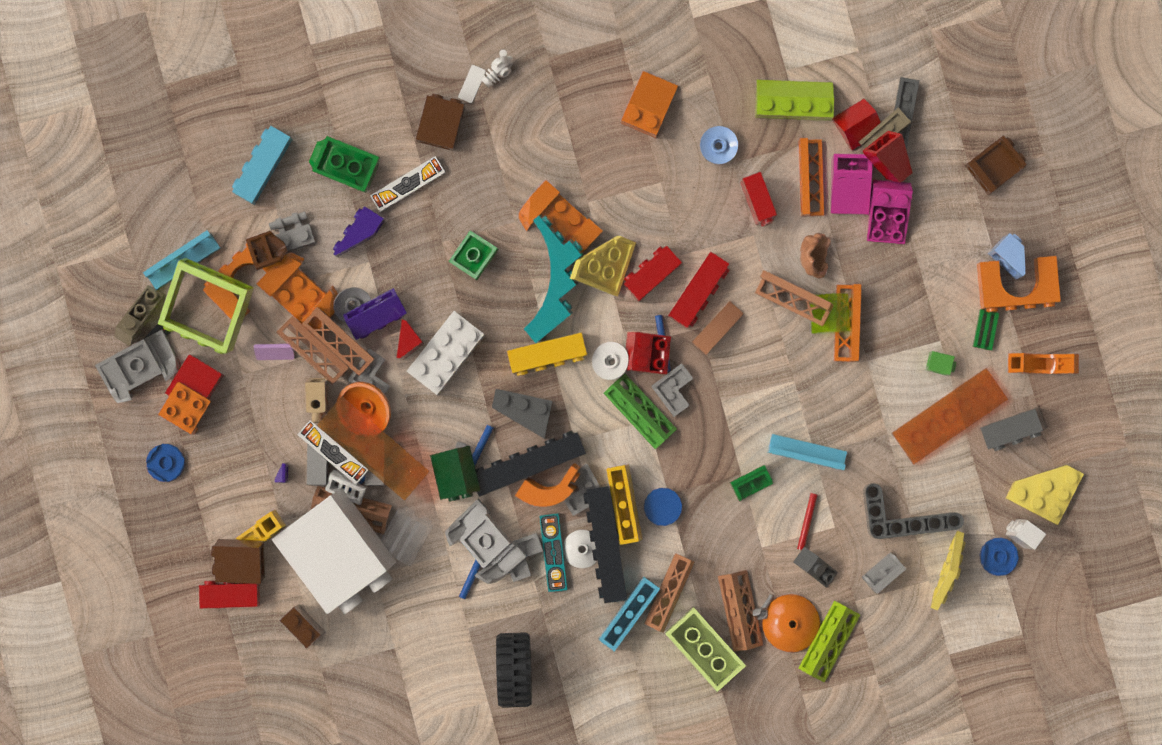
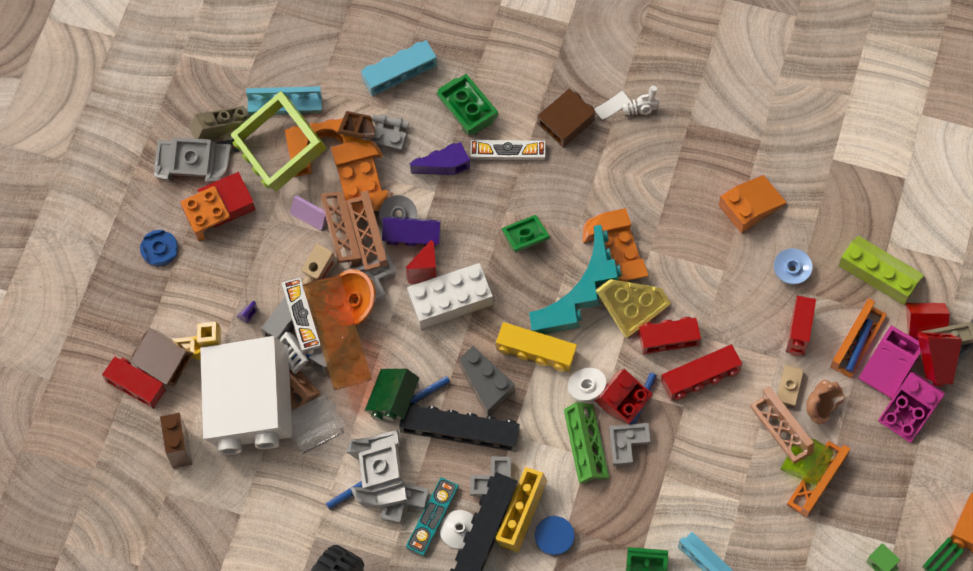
camera: 35 degrees right, 20 degrees down
(544, 496) = (465, 464): orange arch -> none
(717, 328) = (697, 413): nougat slope -> none
(777, 255) = (790, 385): none -> tan plate
(815, 184) = (859, 345): none -> blue bar

